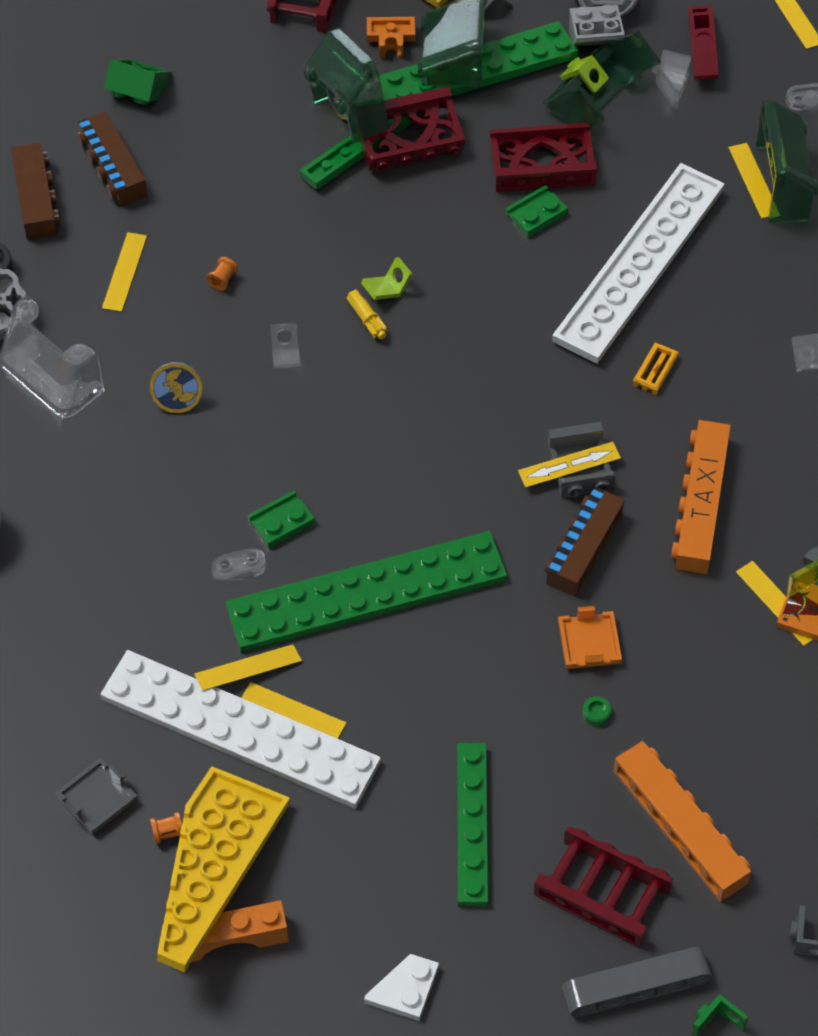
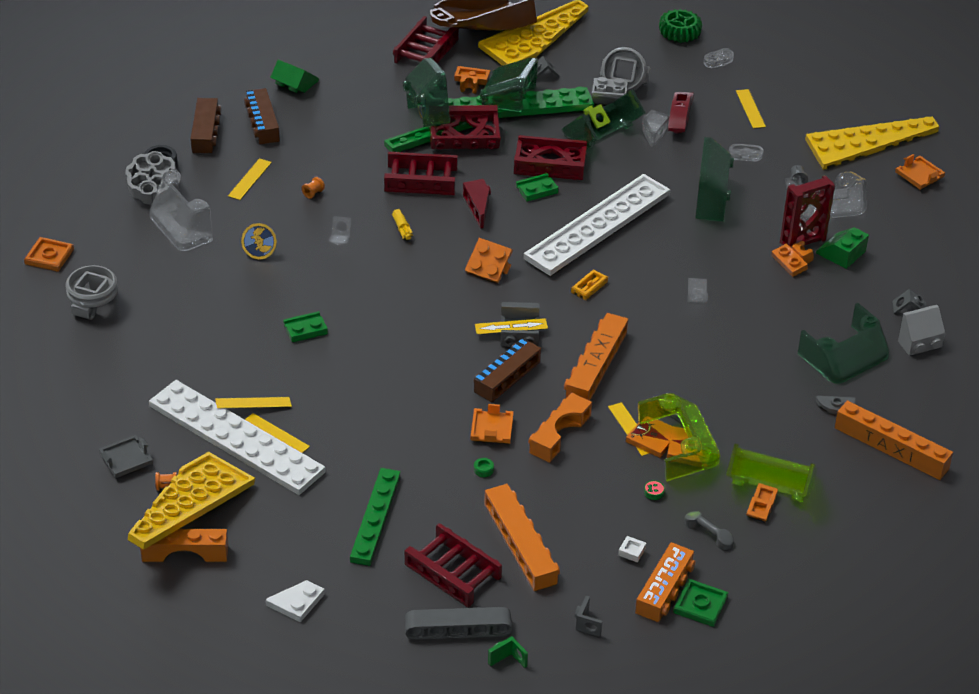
camera: 10 degrees right, 15 degrees down
(239, 566) = (267, 347): clear plate -> none
(365, 591) = (348, 375): green plate -> none
(368, 239) = (421, 183): none -> dark red fence
(388, 286) = (422, 211): lime bracket -> none
(459, 247) = (477, 198): none -> dark red slope
(508, 357) = (489, 260): none -> orange piece
(694, 598) = (571, 413): none -> orange arch
(752, 177) = (691, 190): yellow sticker -> none

